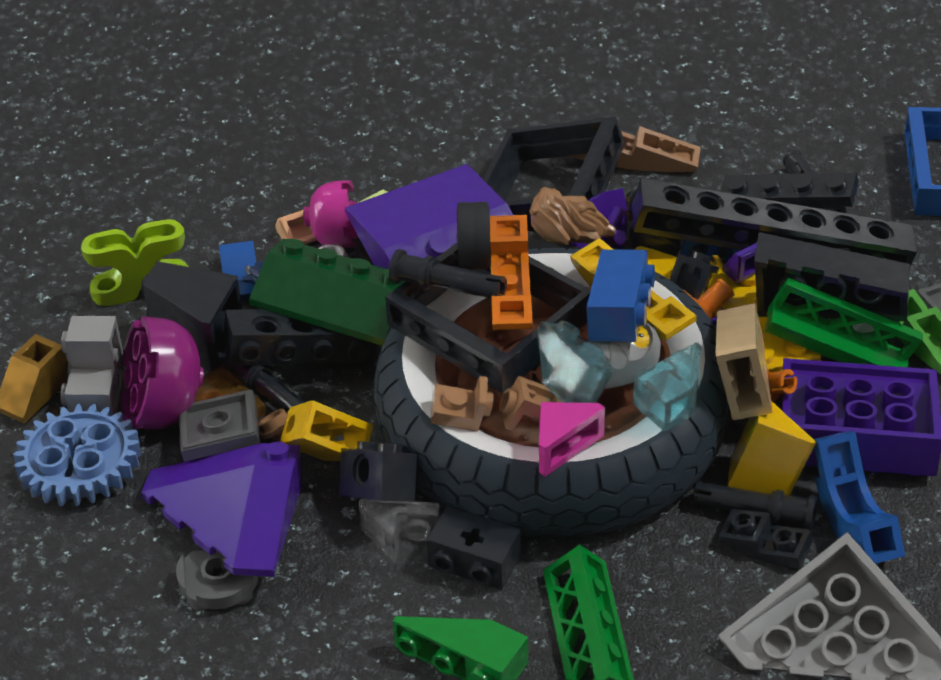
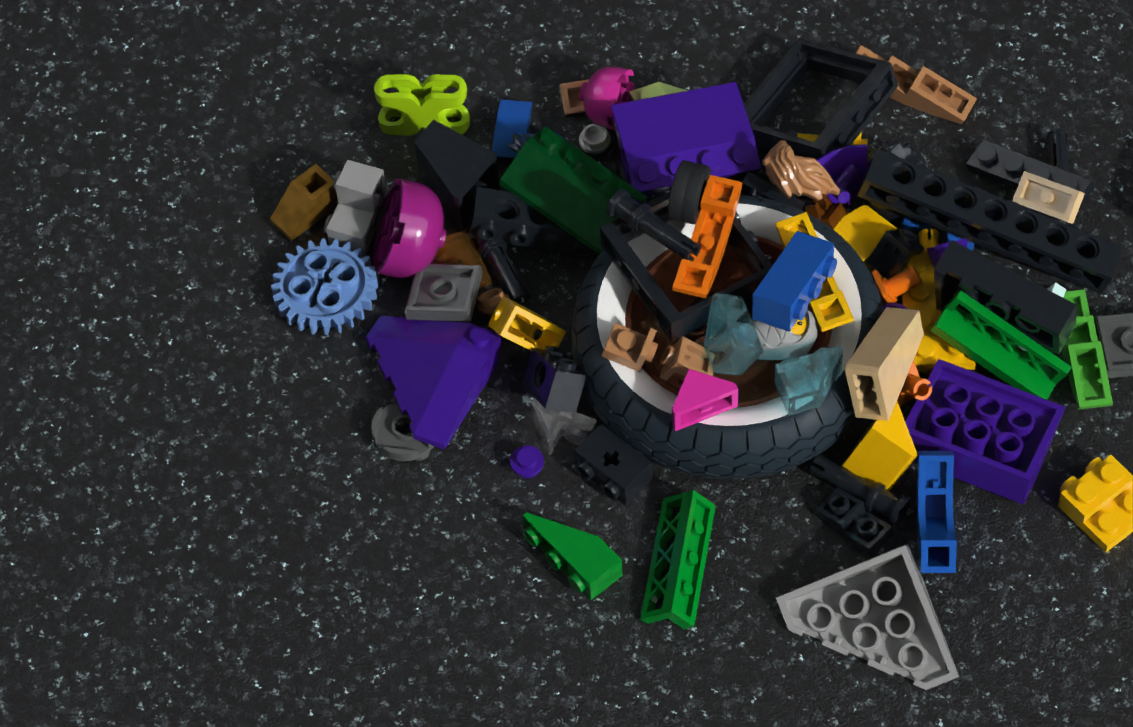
camera: 20 degrees right, 15 degrees up
(372, 571) = (526, 461): none -> dark purple plate
(824, 192) = (1048, 197): none -> tan plate

